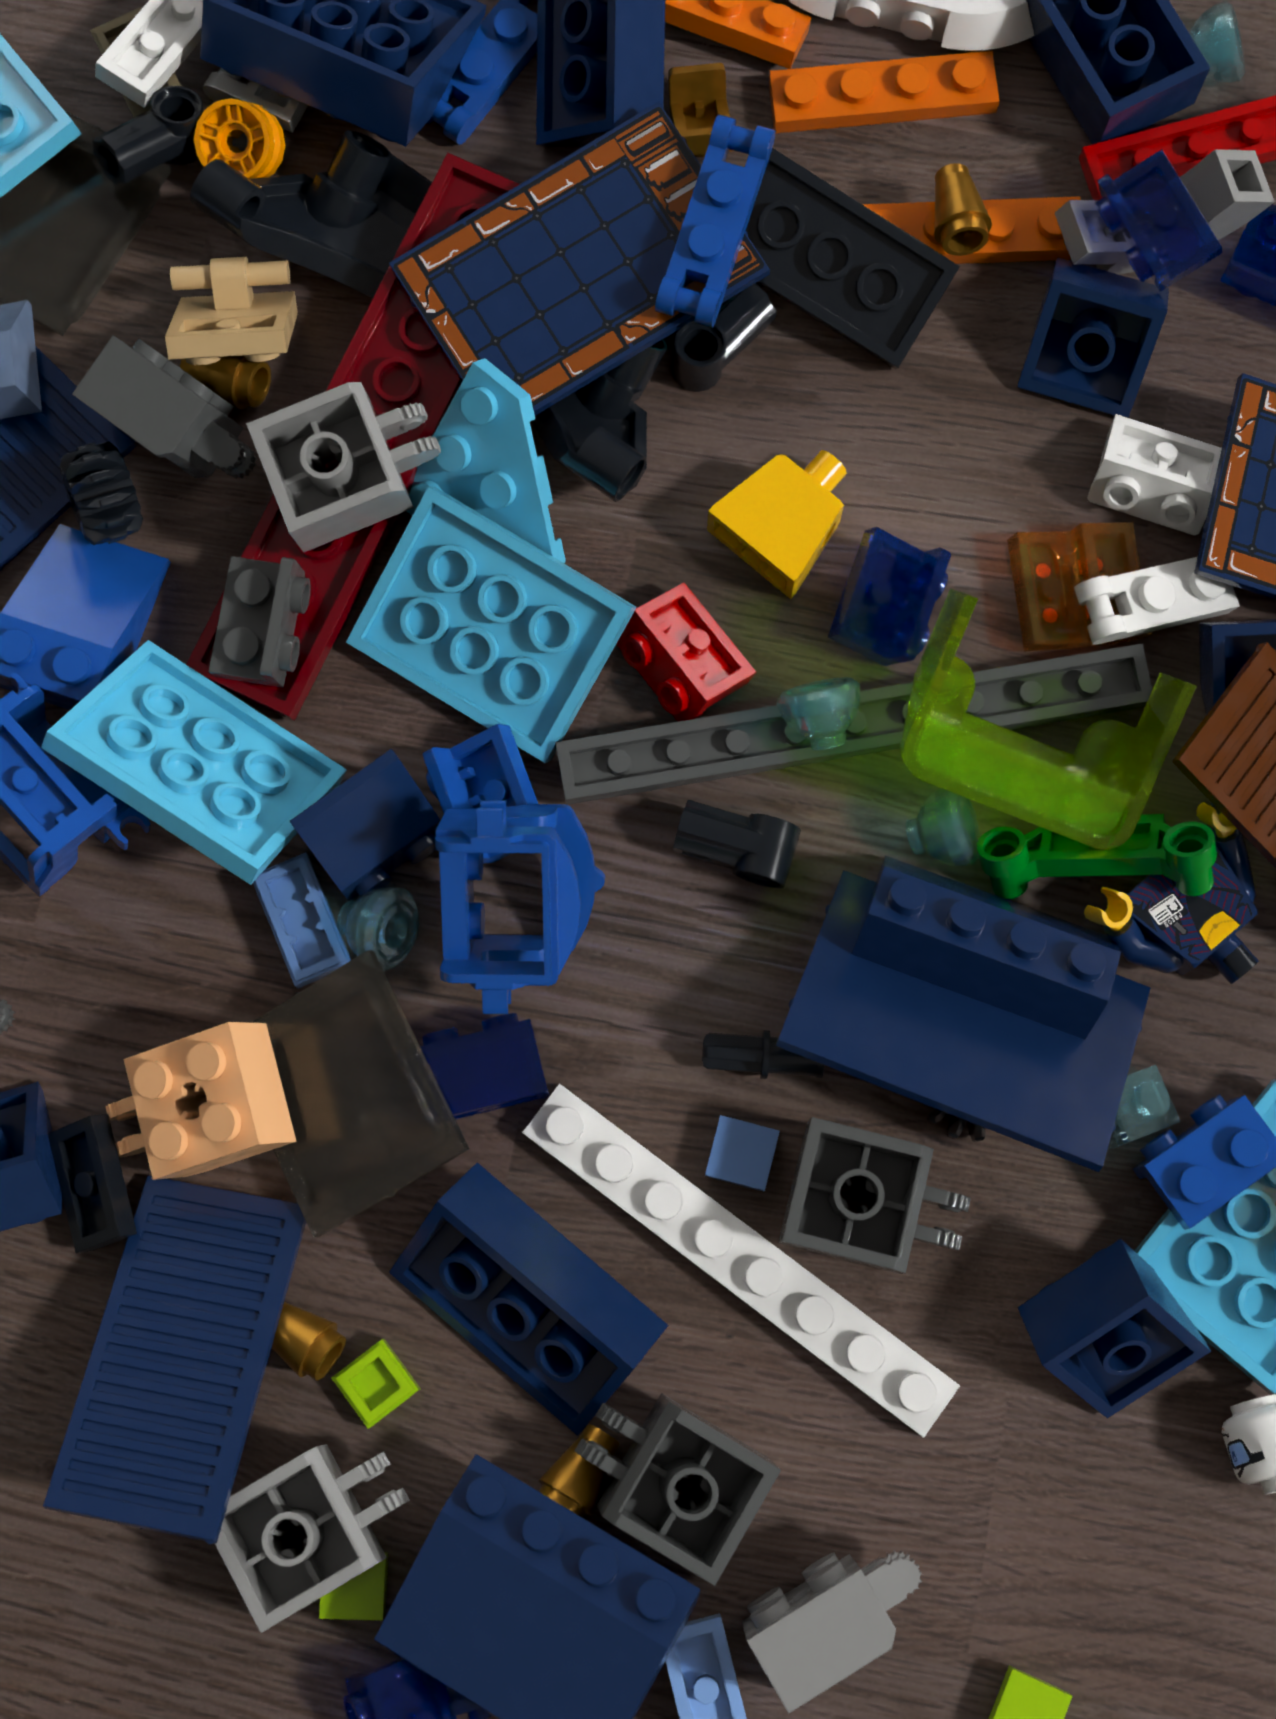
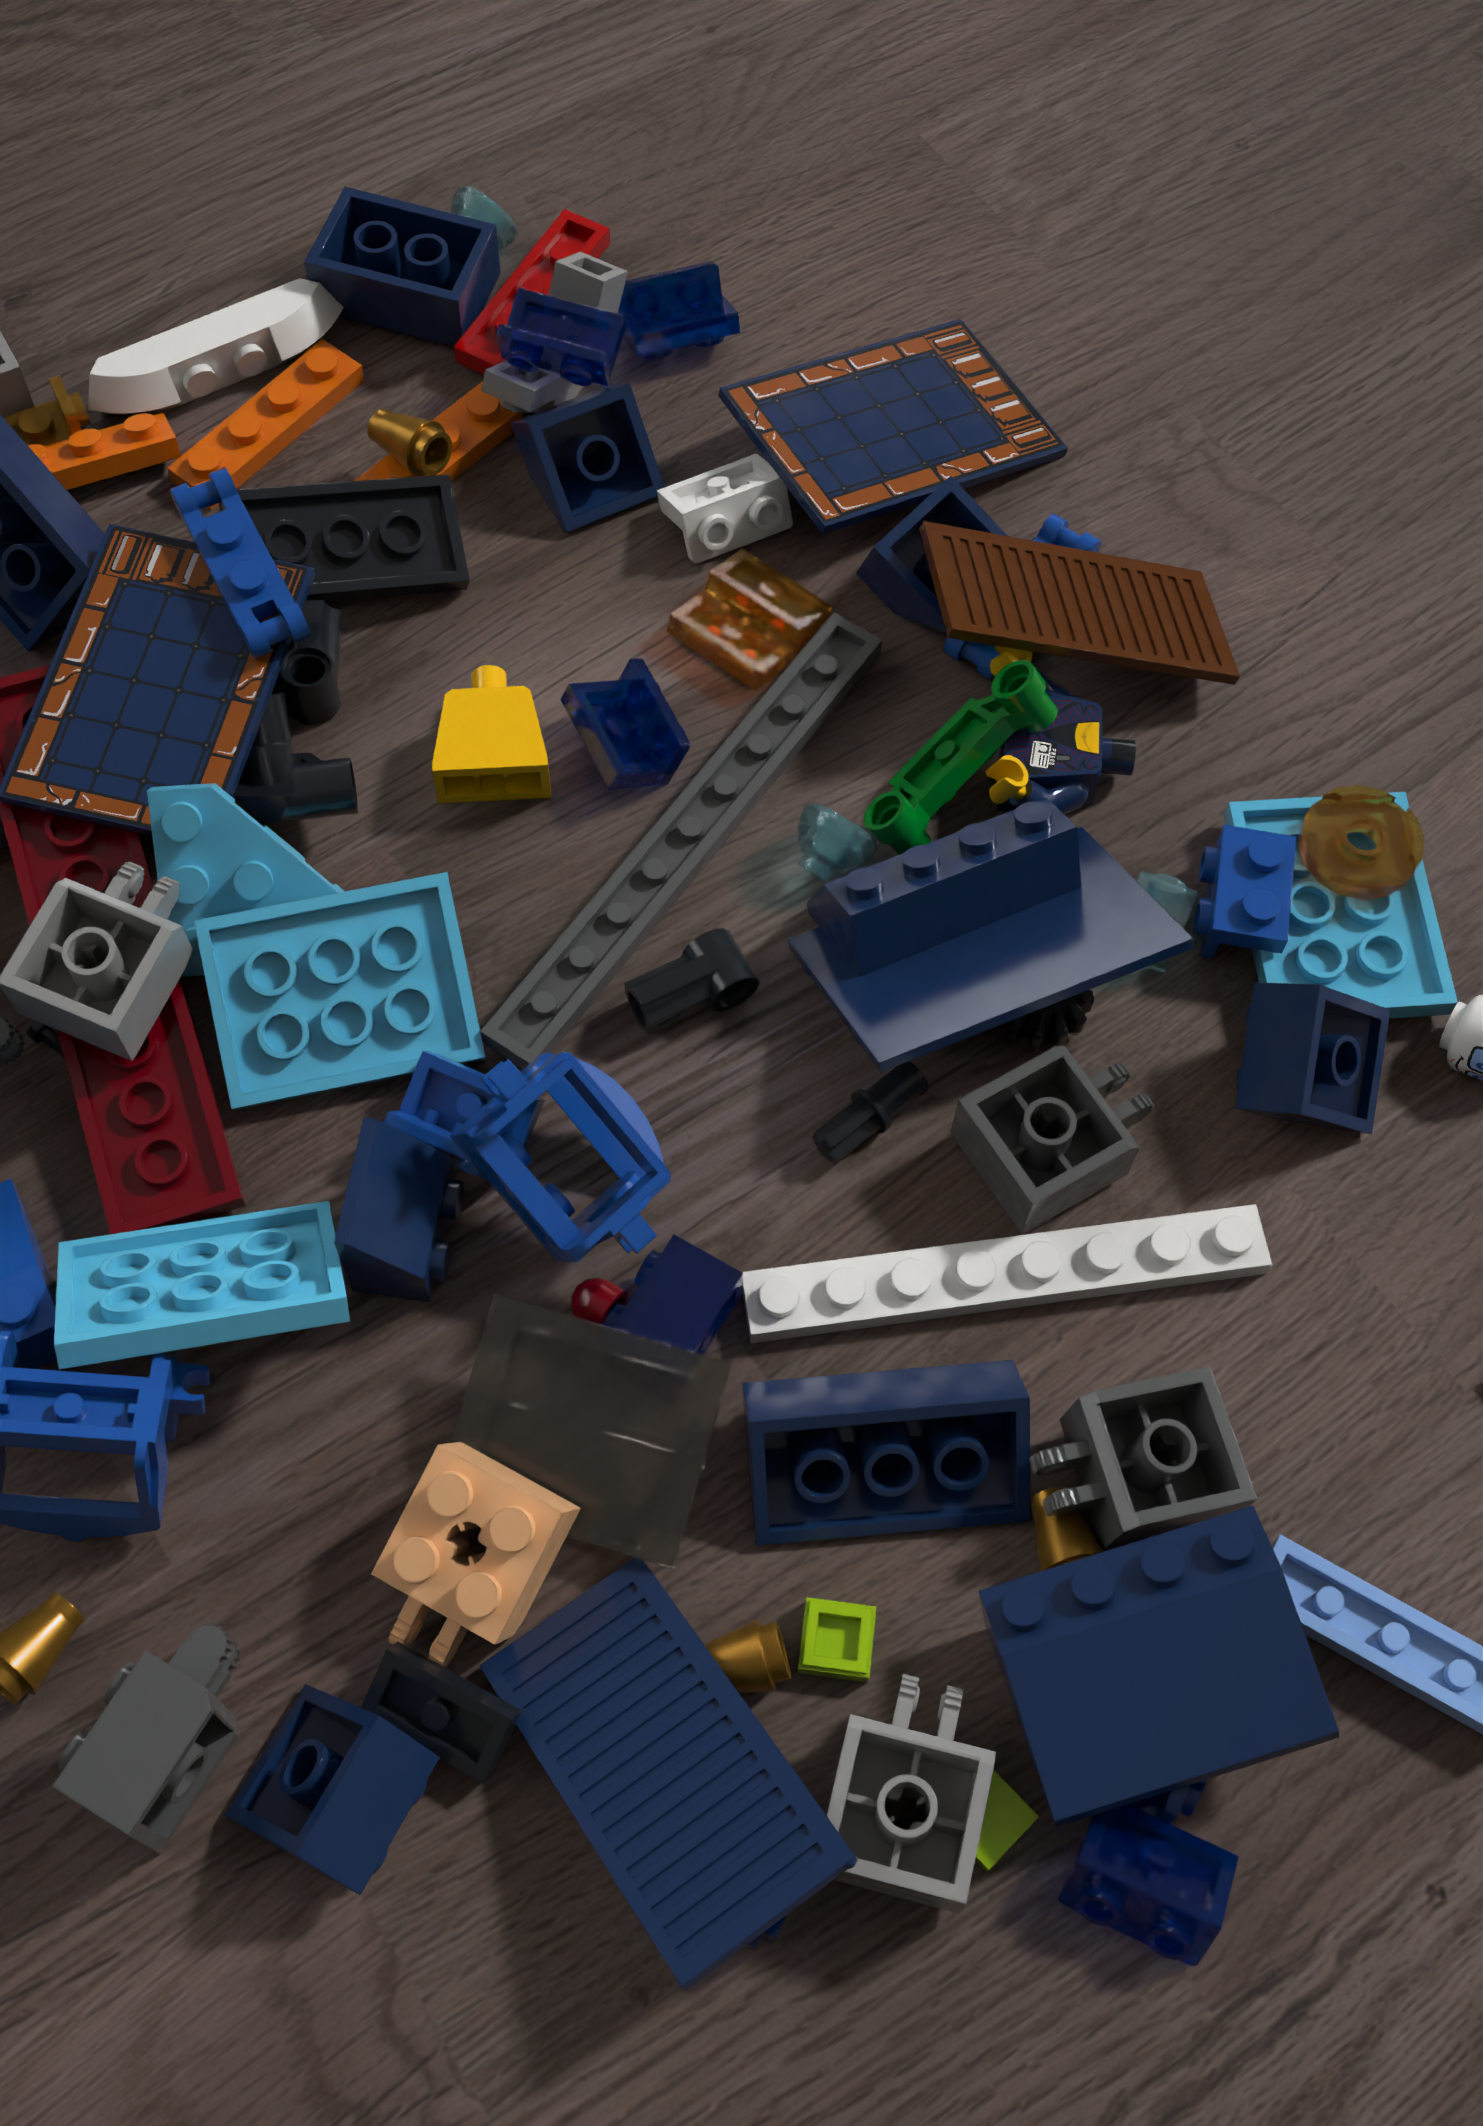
camera: 50 degrees left, 15 degrees down
(259, 621) = (144, 1142): dark grey bracket -> none
(301, 920) = (407, 1343): medium blue plate -> none
(381, 922) = (470, 1280): clear light blue brick -> none
(445, 1010) = (596, 1298): none -> dark red hinge
(683, 653) = (513, 893): red bracket -> none
(695, 100) = (131, 509): pearl gold bracket -> none
(742, 1153) = (928, 1197): medium blue tile -> none
(821, 710) = (663, 830): clear light blue brick -> none
(828, 1623) = (1360, 1453): light grey hinge -> none
(1082, 795) = (905, 718): clear neon green windscreen -> none
(1152, 600) = (811, 578): white plate -> none

